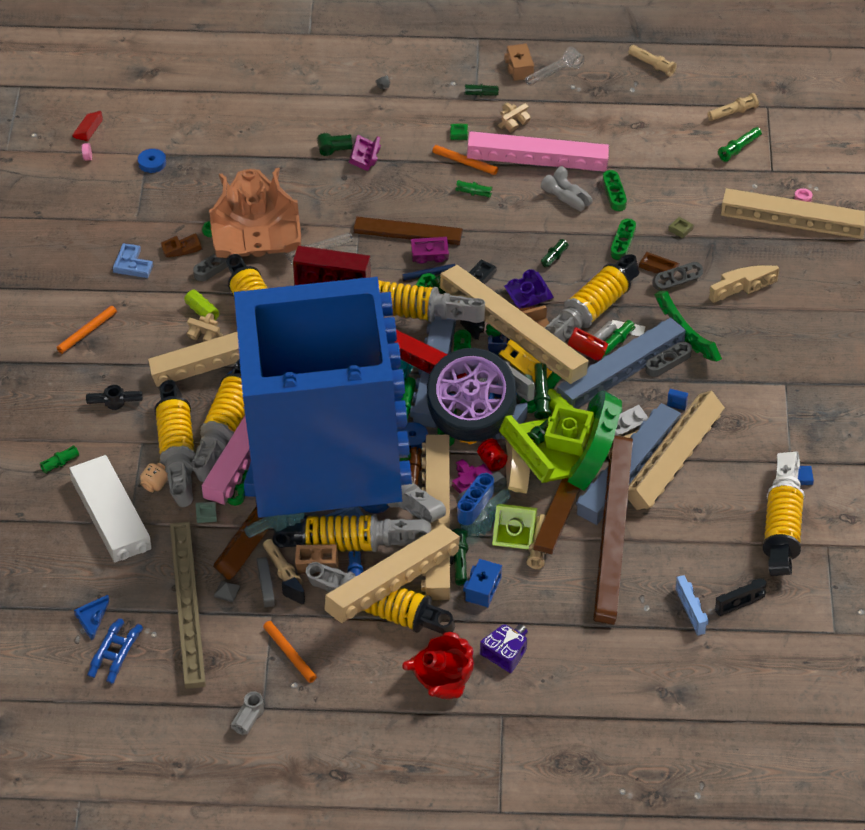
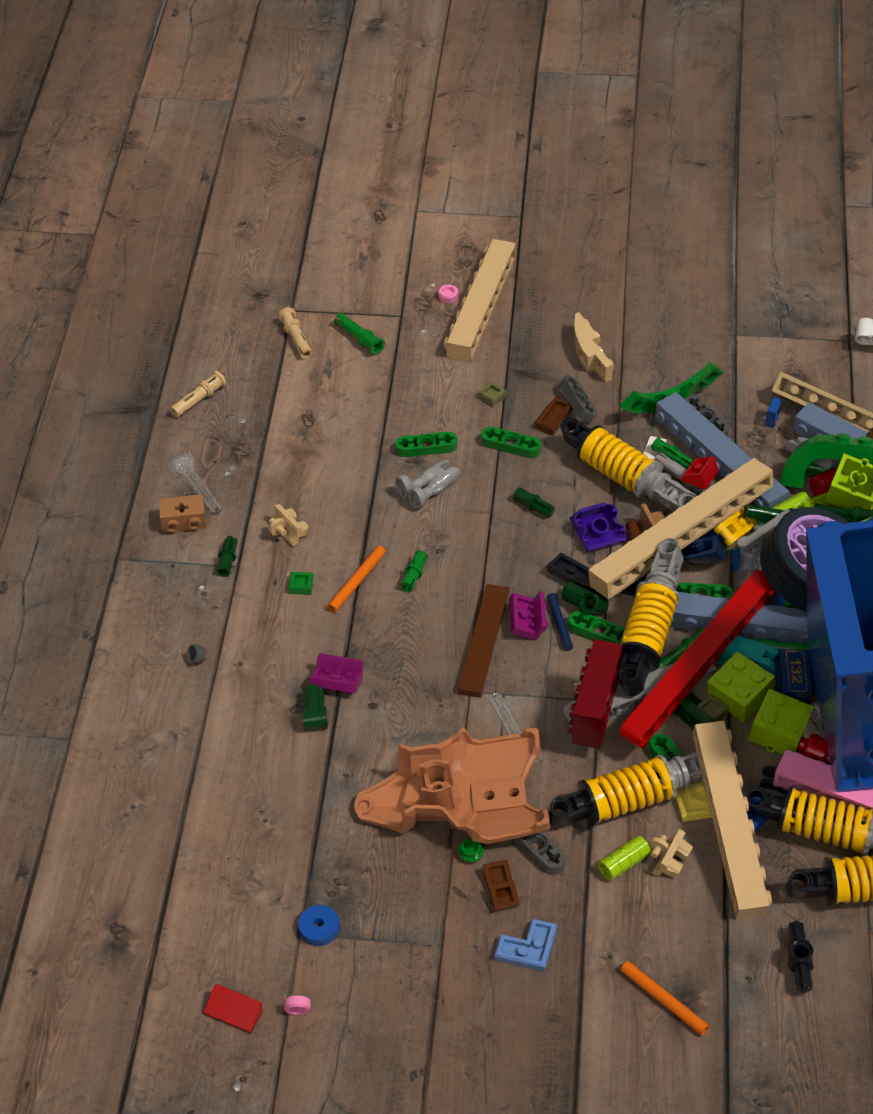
camera: 85 degrees left, 0 degrees up
(537, 151) = (361, 505): bright pink brick -> none

